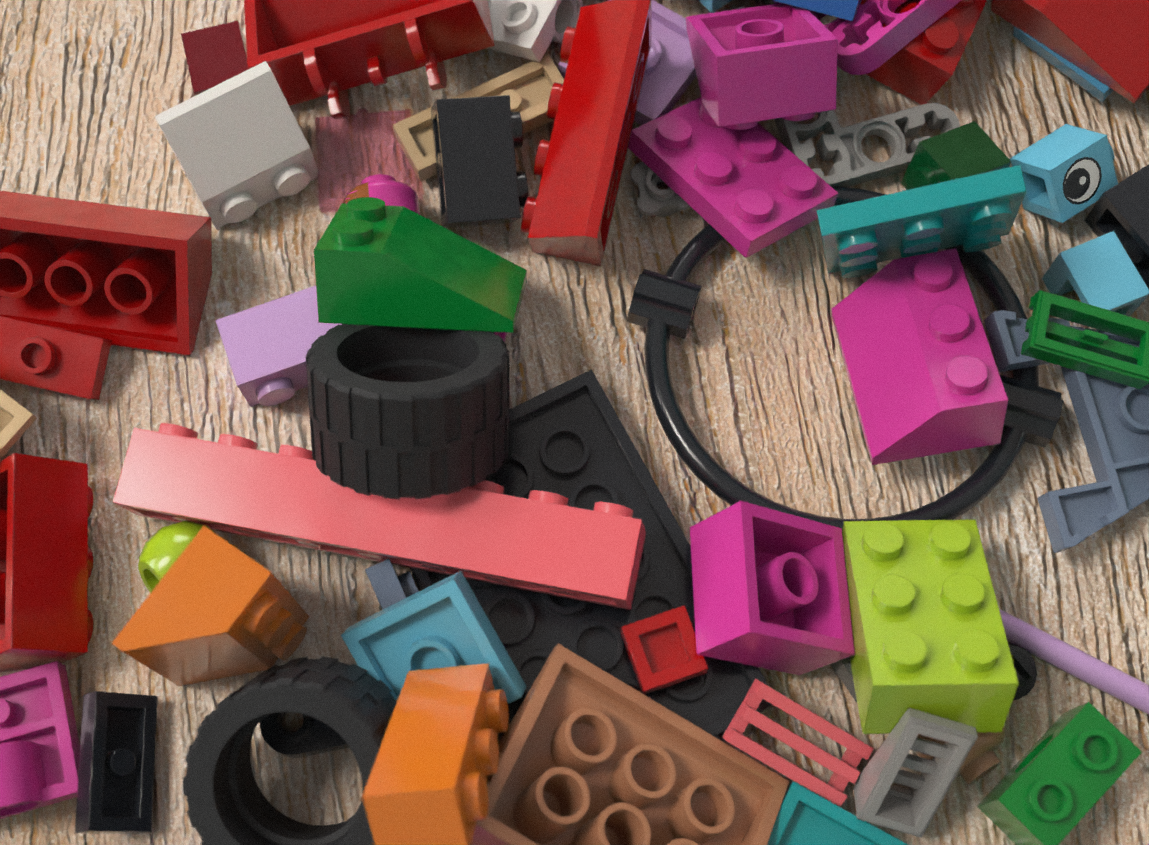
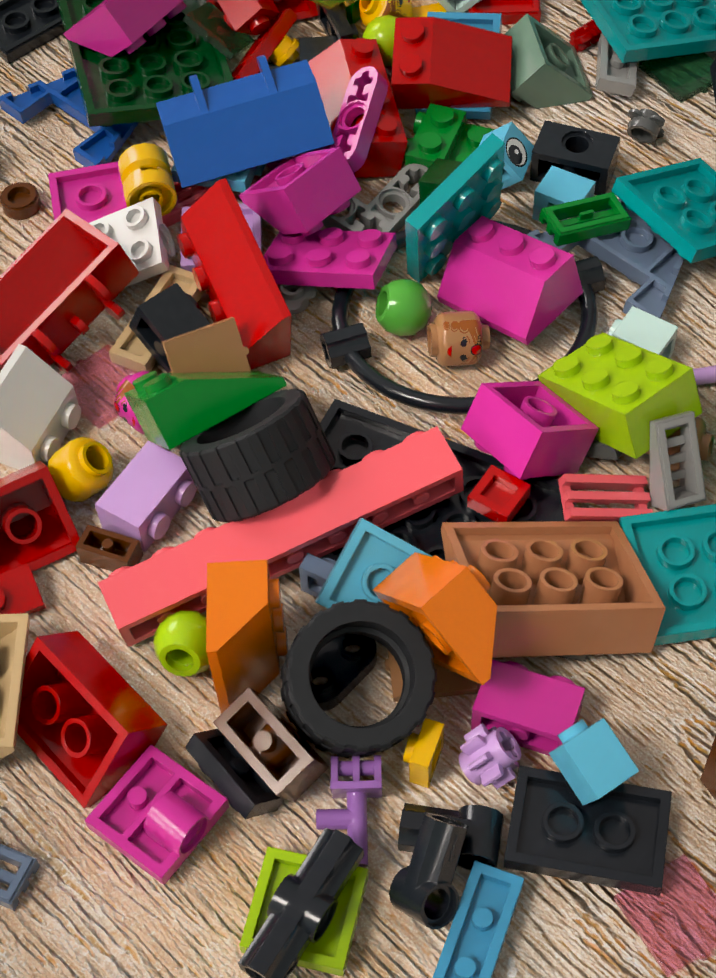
camera: 35 degrees left, 15 degrees down
(150, 764) = (271, 745): none -> reddish brown brick
(206, 382) = (108, 549): none -> reddish brown piece
(243, 260) = (81, 469): none -> yellow head
(479, 210) = (208, 349): none -> medium nougat piece
(769, 303) = (403, 307): none -> bright green piece
(799, 392) = (457, 338): none -> medium nougat head
(1015, 95) = (442, 135): none -> green plate
(1026, 559) = (646, 332): none -> light aqua brick

